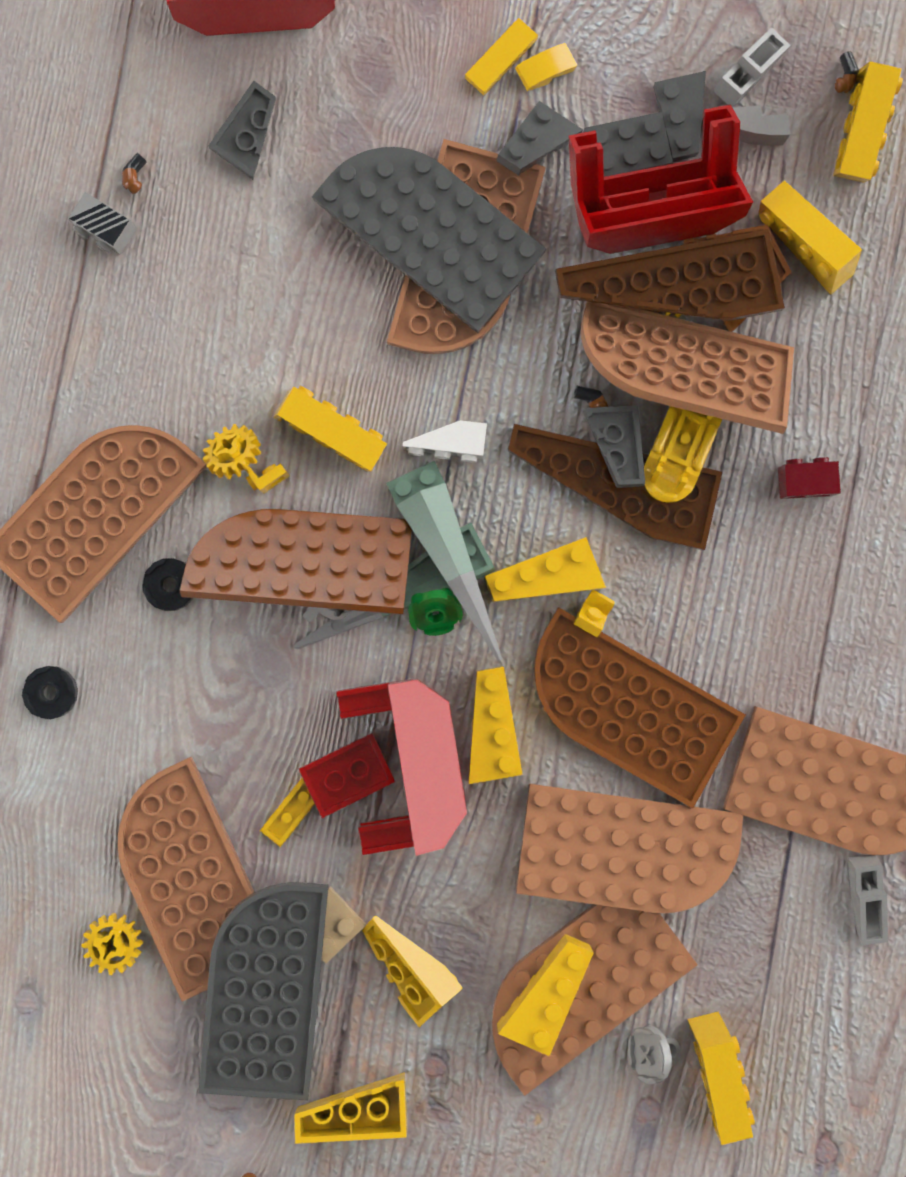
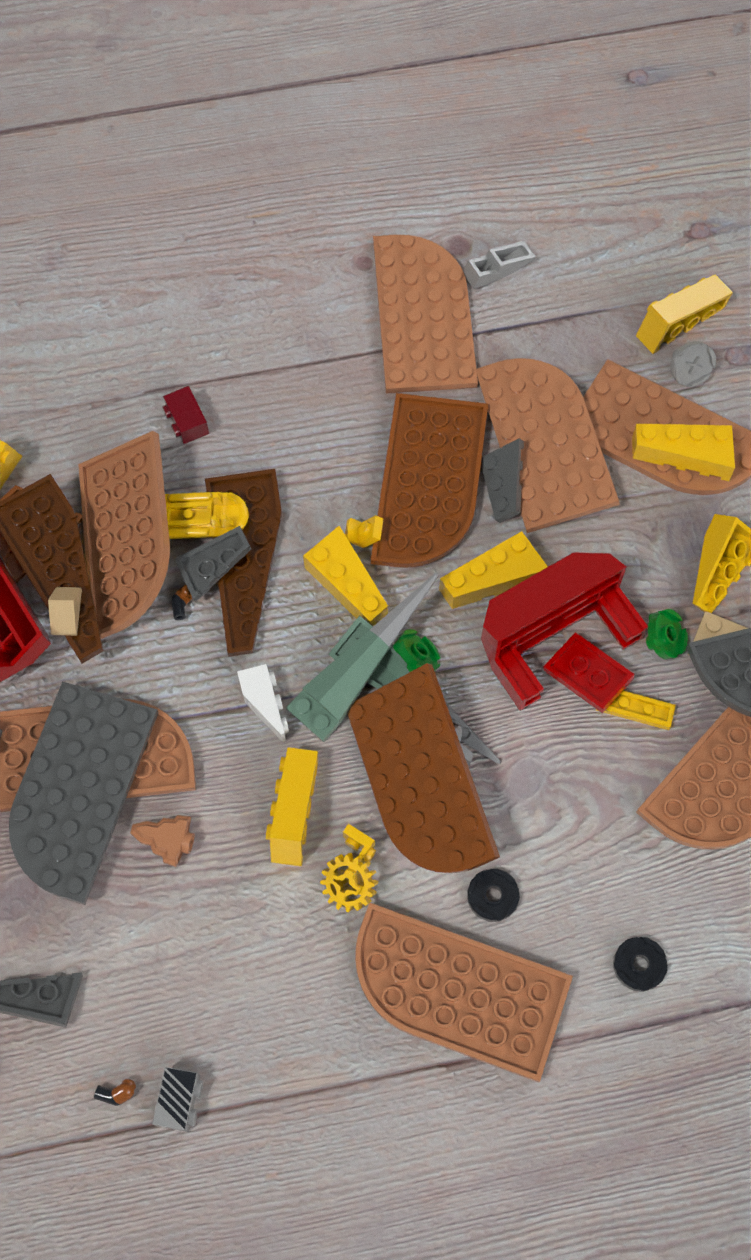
camera: 105 degrees left, 20 degrees down
(349, 298) = (167, 838): none -> nougat rock
(364, 870) = (662, 625): none -> green plate
(598, 784) = (502, 479): none -> dark grey wing
(616, 269) = (64, 610): none -> tan slope

